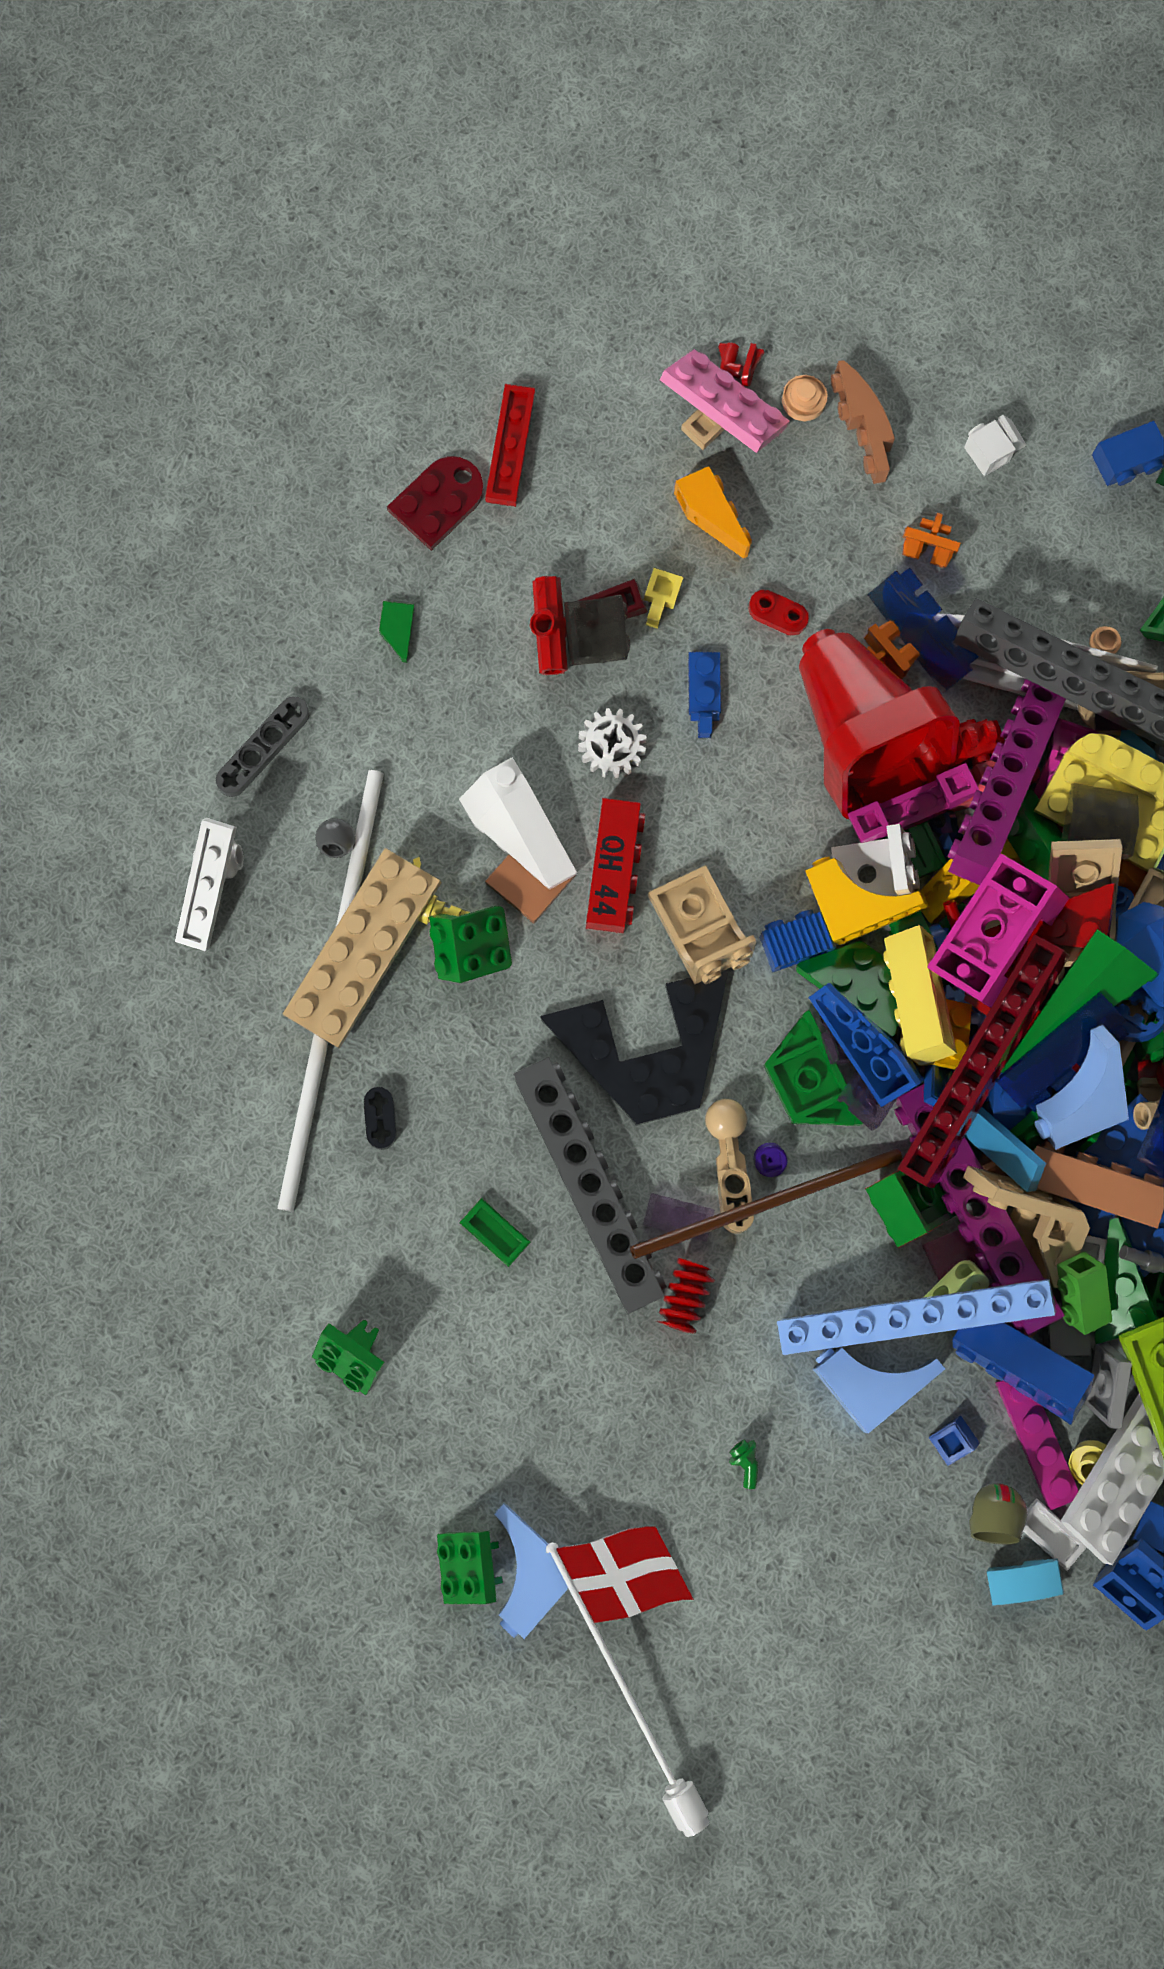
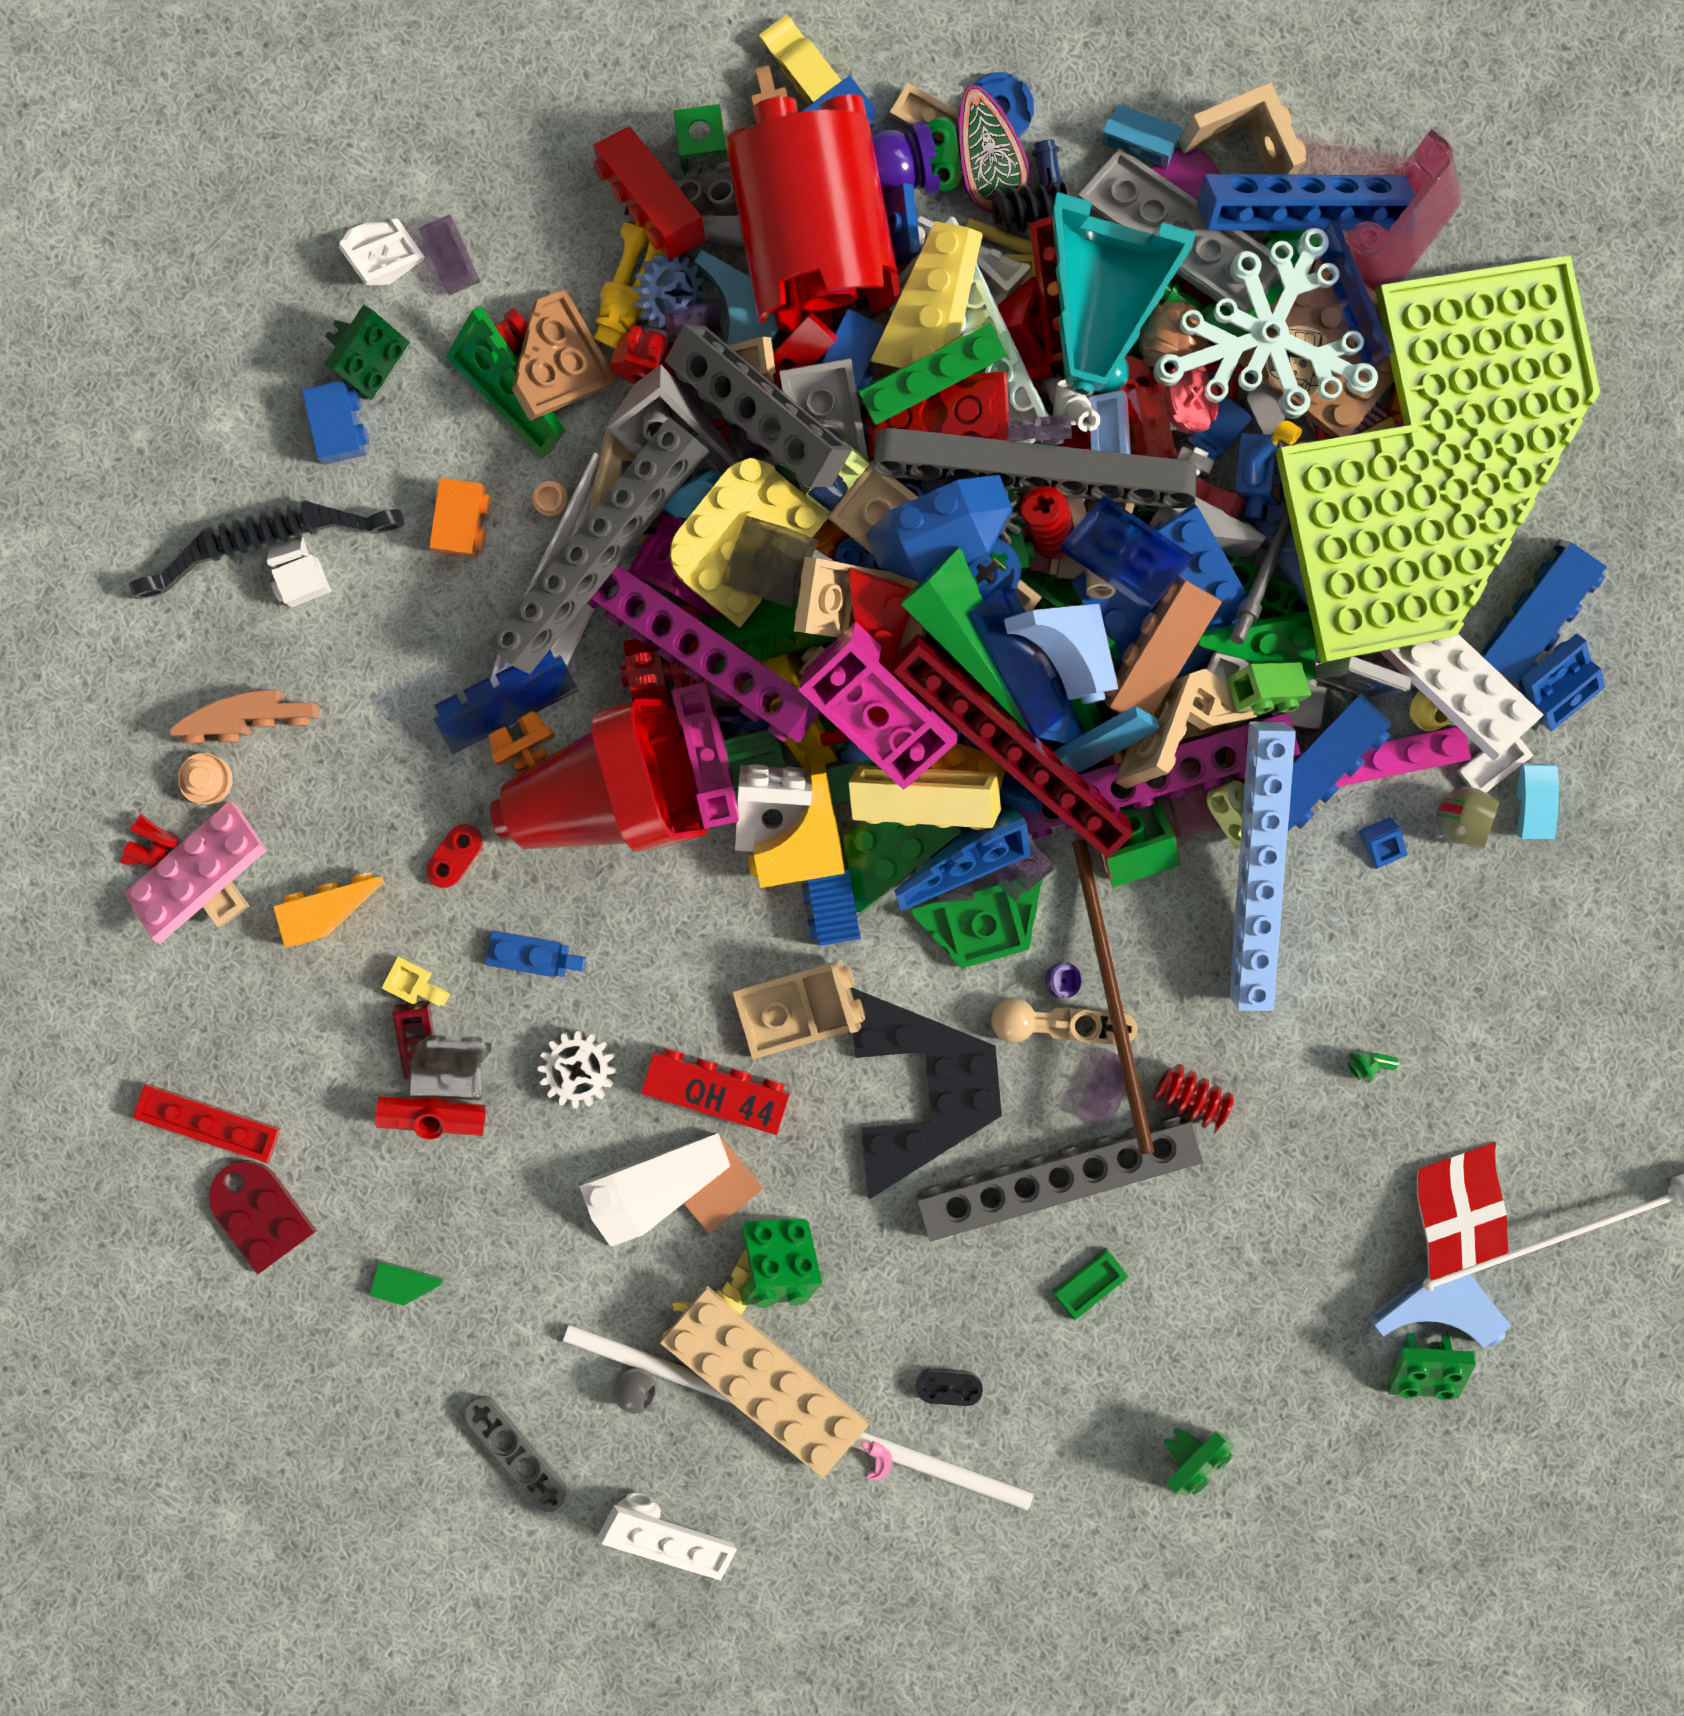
camera: 75 degrees left, 10 degrees up
(307, 1067) = (883, 1459): none -> bright pink piece
(868, 1393) = (1324, 919): light blue arch -> none
(943, 547) = (395, 685): orange hips -> none
(1003, 370) = (209, 545): none -> black piece
(1072, 568) = (459, 518): none -> orange brick

